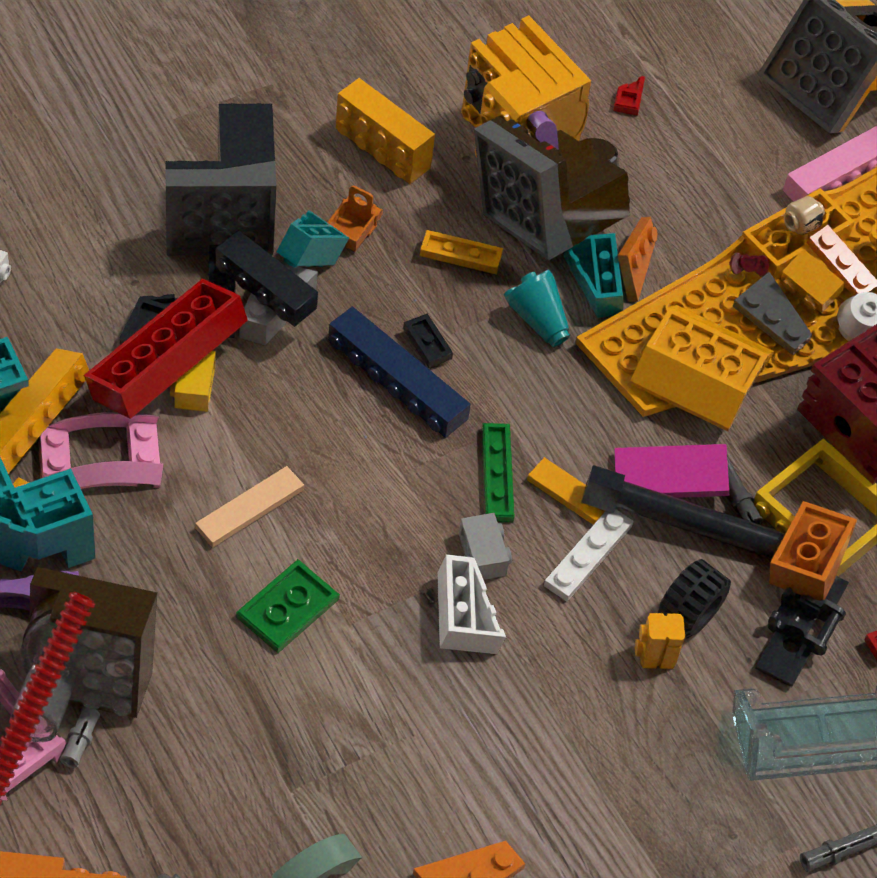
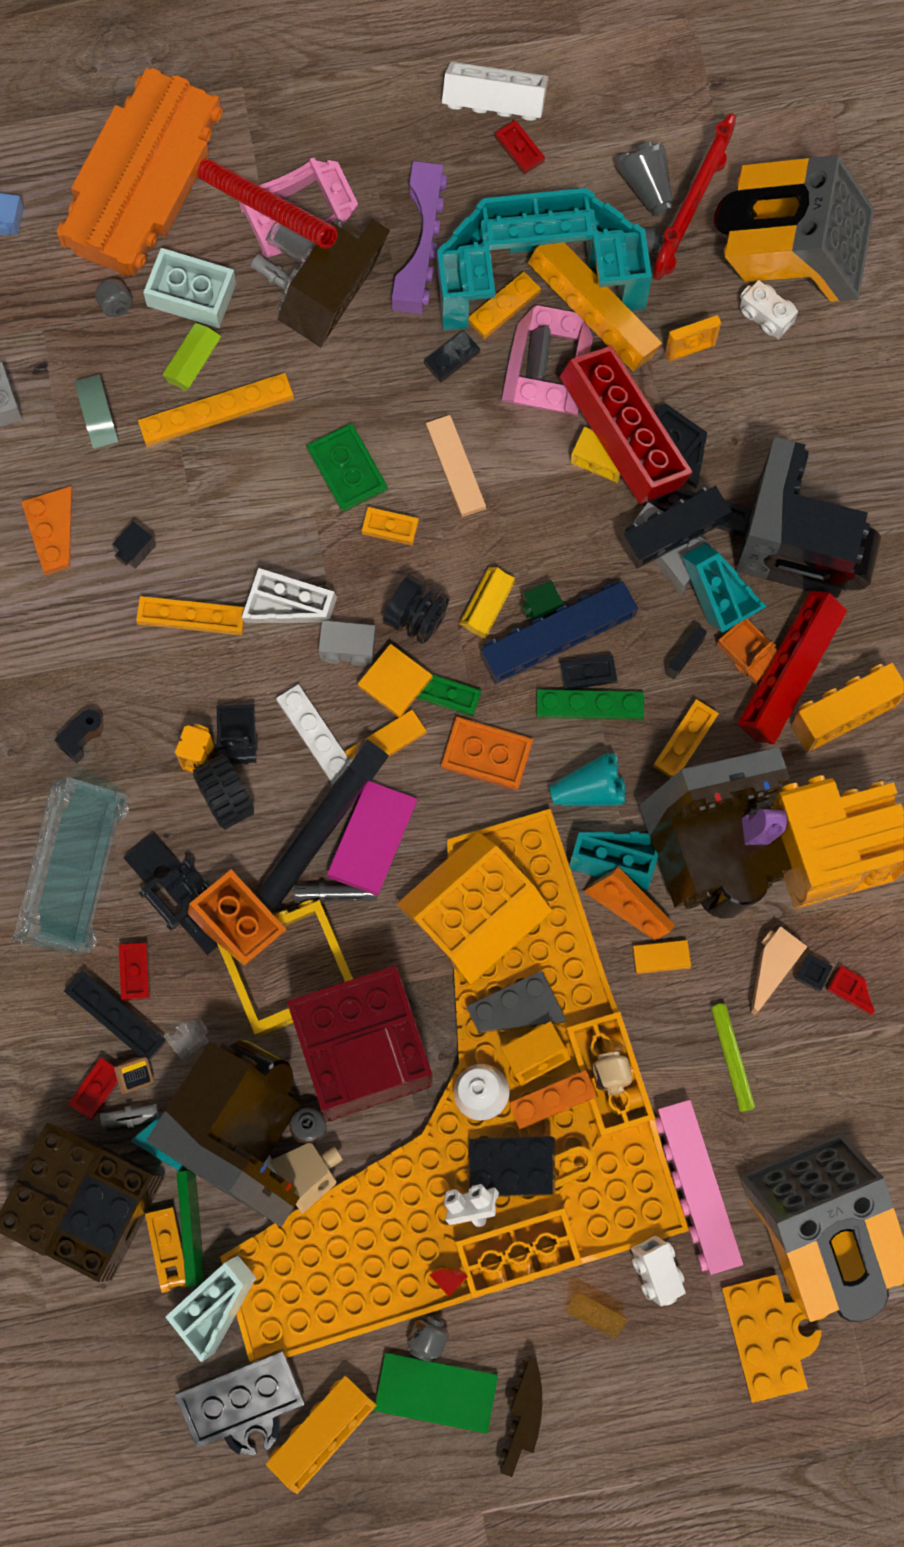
camera: 115 degrees right, 20 degrees up
(42, 320) = (692, 338): none -> light orange tile
(99, 451) = (538, 354): none -> dark grey slope
(124, 541) = (452, 356): none -> black plate
(130, 813) = (190, 287): none -> light aqua brick
(212, 790) = (191, 356): none -> lime piece
(266, 753) = (215, 409): none -> light orange plate
(339, 177) = (792, 667): none -> red brick
(341, 544) = (390, 526): none -> light orange plate
(373, 392) = (541, 601): none -> dark green brick
(376, 267) = (686, 652): none -> black tile
(389, 438) = (487, 602): none -> yellow piece
(429, 486) = (419, 610): none -> black wheel
(458, 335) = (590, 705): none -> green plate
(460, 779) = (133, 545): none -> black brick
(507, 492) = (395, 681): none -> light orange tile
(514, 701) = (190, 615): none -> light orange plate
(542, 406) = (487, 753): none -> orange tile
(618, 618) = (237, 733): none -> black piece
(630, 121) = (814, 972): none -> black plate
(645, 147) = (775, 961): none -> light nougat slope
(670, 231) = (661, 957): none -> light orange tile
(687, 765) = (79, 733): none -> black leg
(729, 163) = (732, 1057): none -> lime axle
(747, 263) = (581, 1004): dark red piece -> none

